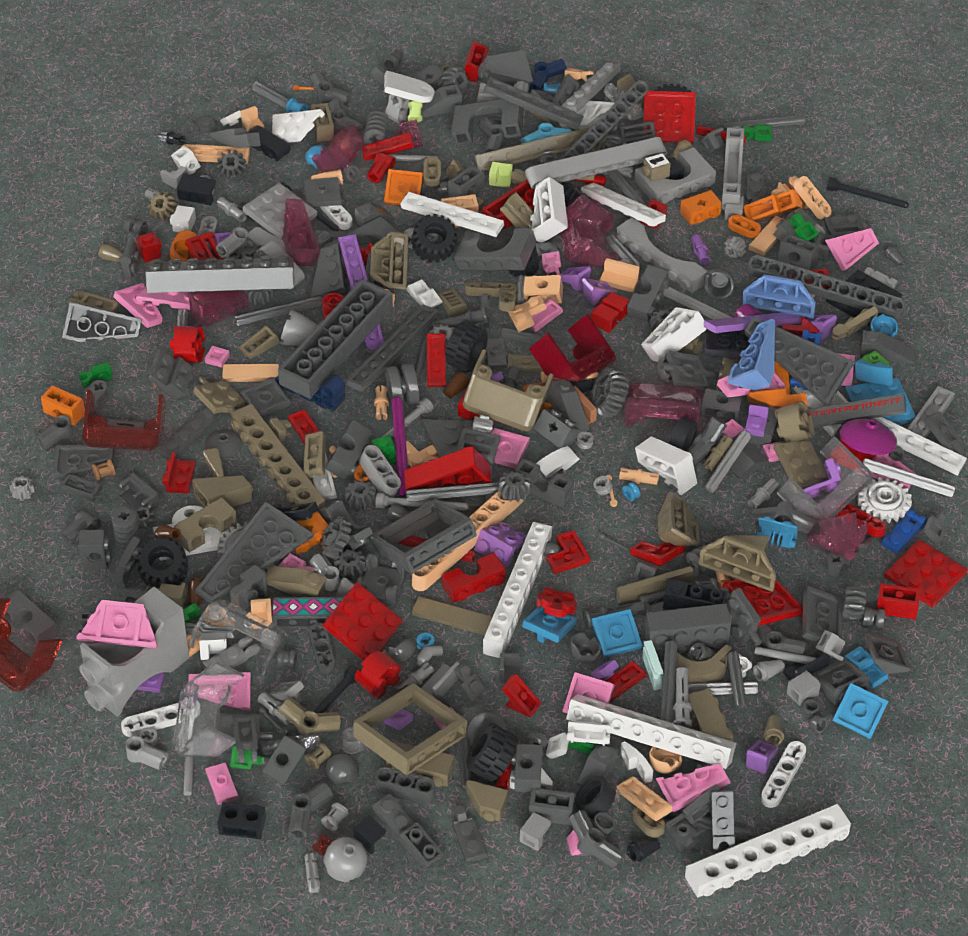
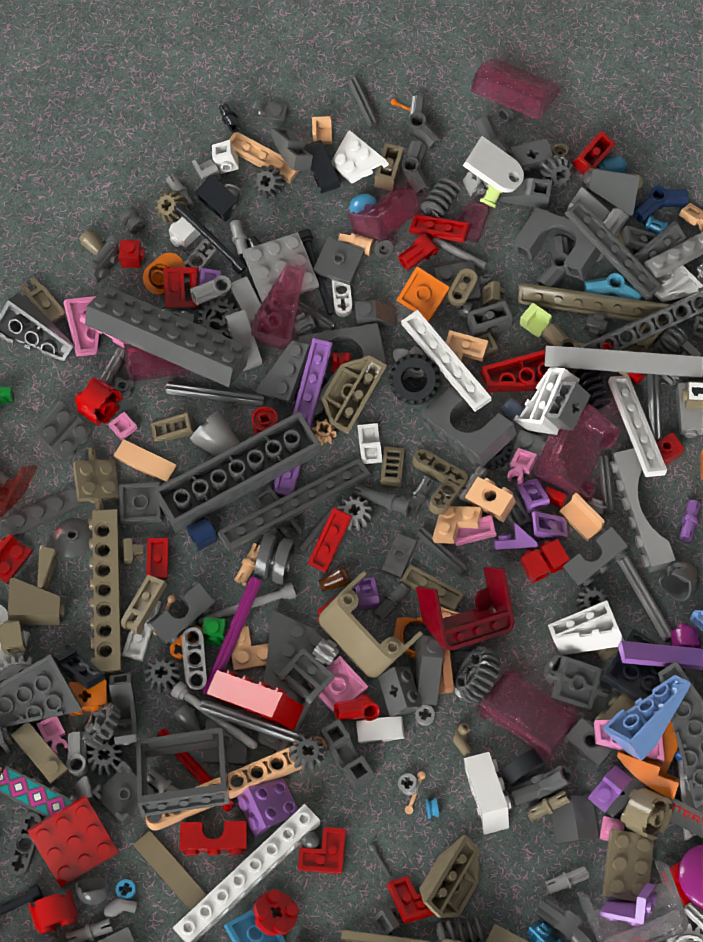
camera: 30 degrees right, 20 degrees up
(231, 119) = (303, 118): white plate -> none
(244, 223) = (238, 263): none -> black piece
(295, 106) = (377, 132): dark azure bush -> none
(387, 42) = (515, 88): none -> clear pink slope
(466, 346) = (365, 541): black tyre -> none
(517, 211) = (514, 391): dark tan plate -> none
(532, 451) = (357, 709): none -> red piece
(566, 200) = (567, 405): none -> dark grey brick
(581, 305) = (520, 540): none -> medium lavender slope
(595, 270) = (556, 497): none -> red tile
(622, 443) = (460, 738): none -> dark tan arm
(639, 476) = (452, 790): light nougat pin -> none
(727, 461) = (551, 822): light grey axle -> none
(733, 429) = (582, 781): bright pink plate -> none

